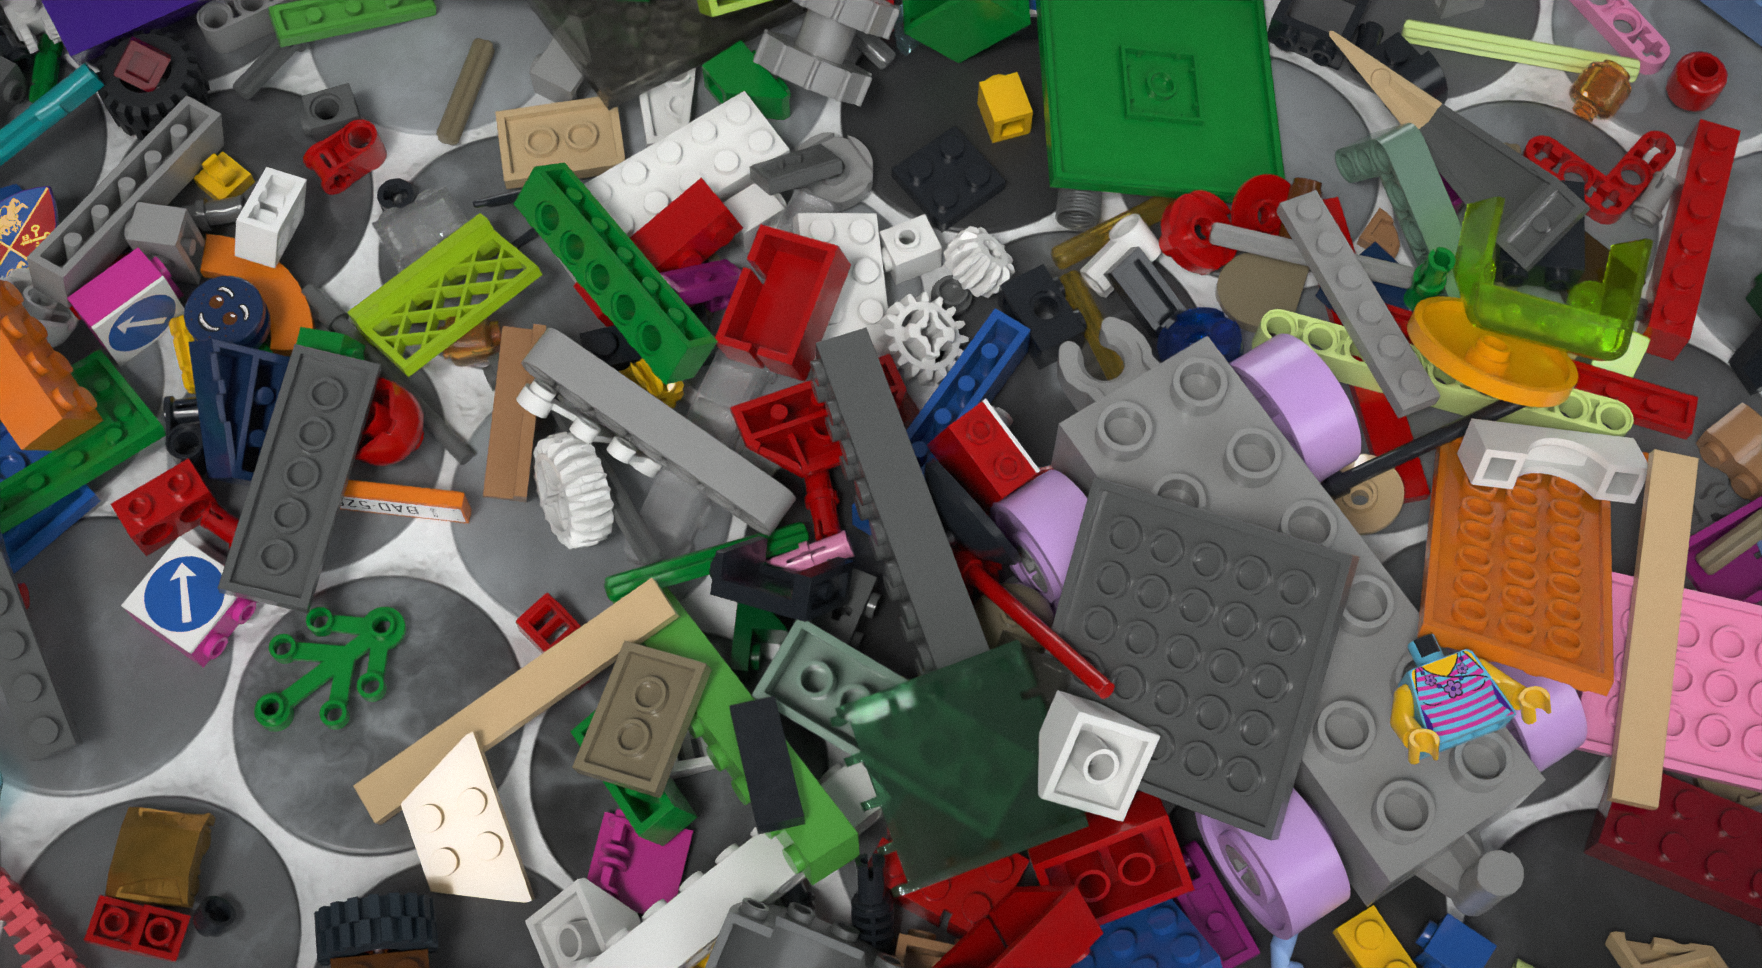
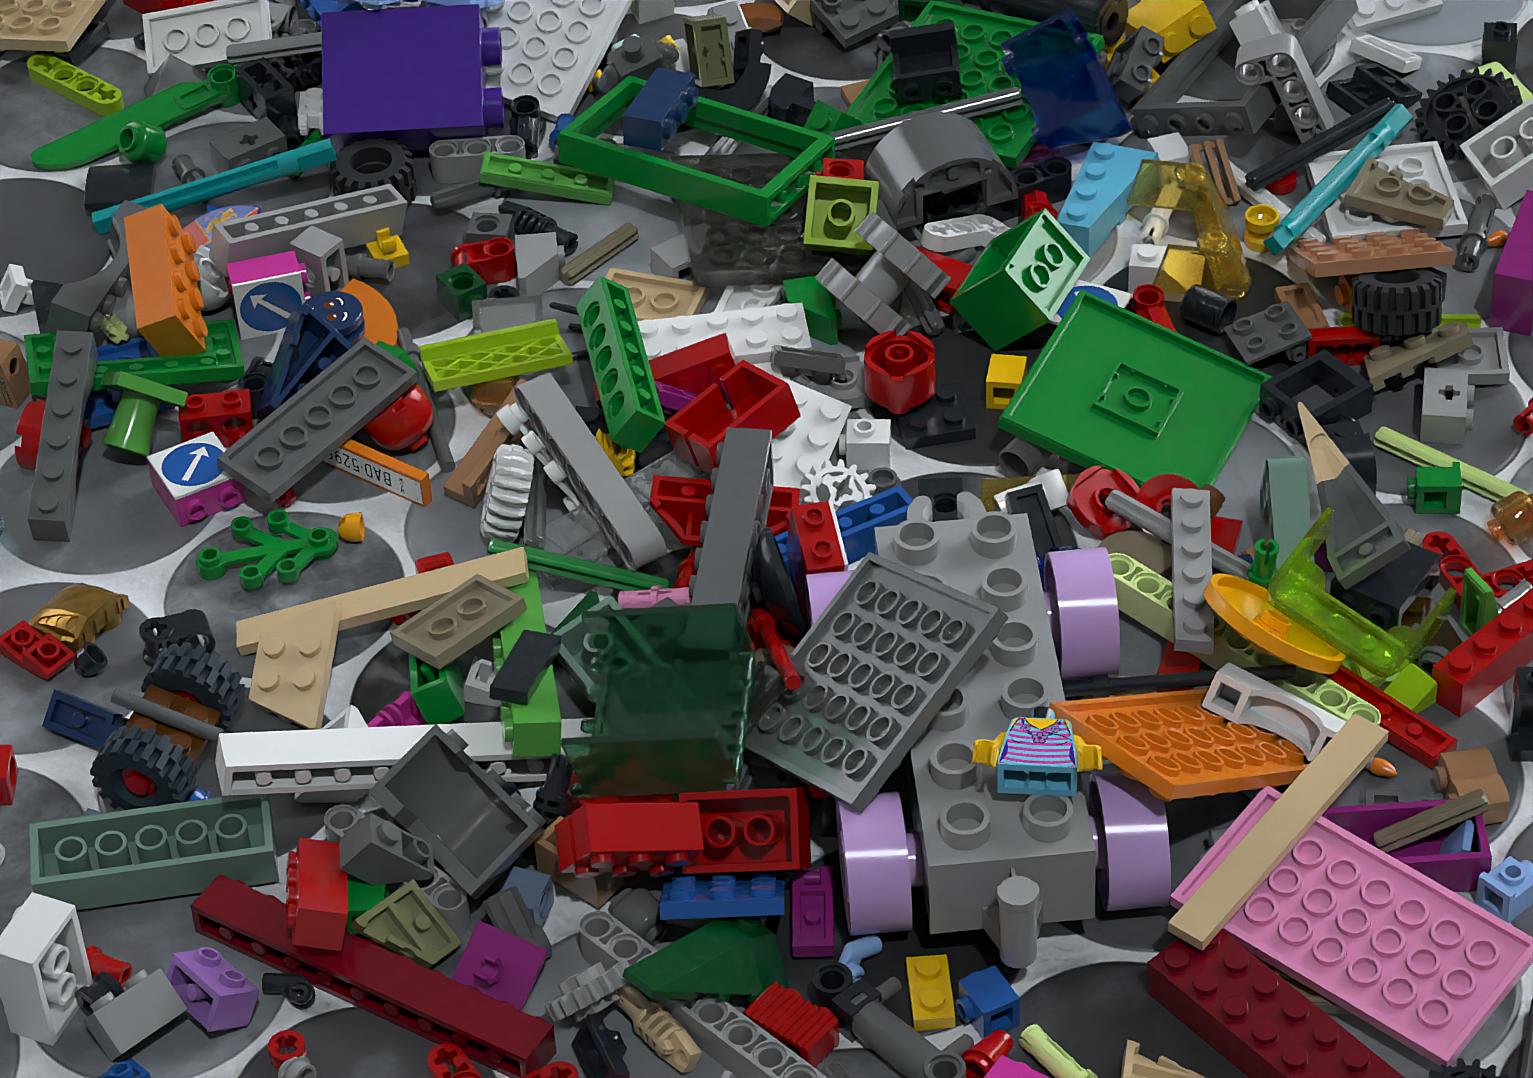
camera: 30 degrees right, 25 degrees down
(70, 533) = (137, 410): none -> bright green plant
(142, 65) = (370, 154): dark red plate -> none
(270, 217) = (401, 274): white brick -> none
(303, 838) = (177, 628): none -> black piece
(338, 196) = (458, 289): none -> dark green brick
(377, 81) = (533, 222): none -> black hinge
(408, 135) = (538, 262): none -> light grey slope
(412, 592) = (352, 527): none -> light orange hinge
(746, 578) = (616, 577): black panel -> none
(904, 147) = (899, 370): none -> red brick
(978, 261) = (912, 459): white gear -> none
(1092, 756) = (762, 731): white slope -> none
(1504, 81) = (1436, 489): none -> green brick
(1640, 222) = (1477, 603): none -> bright green slope

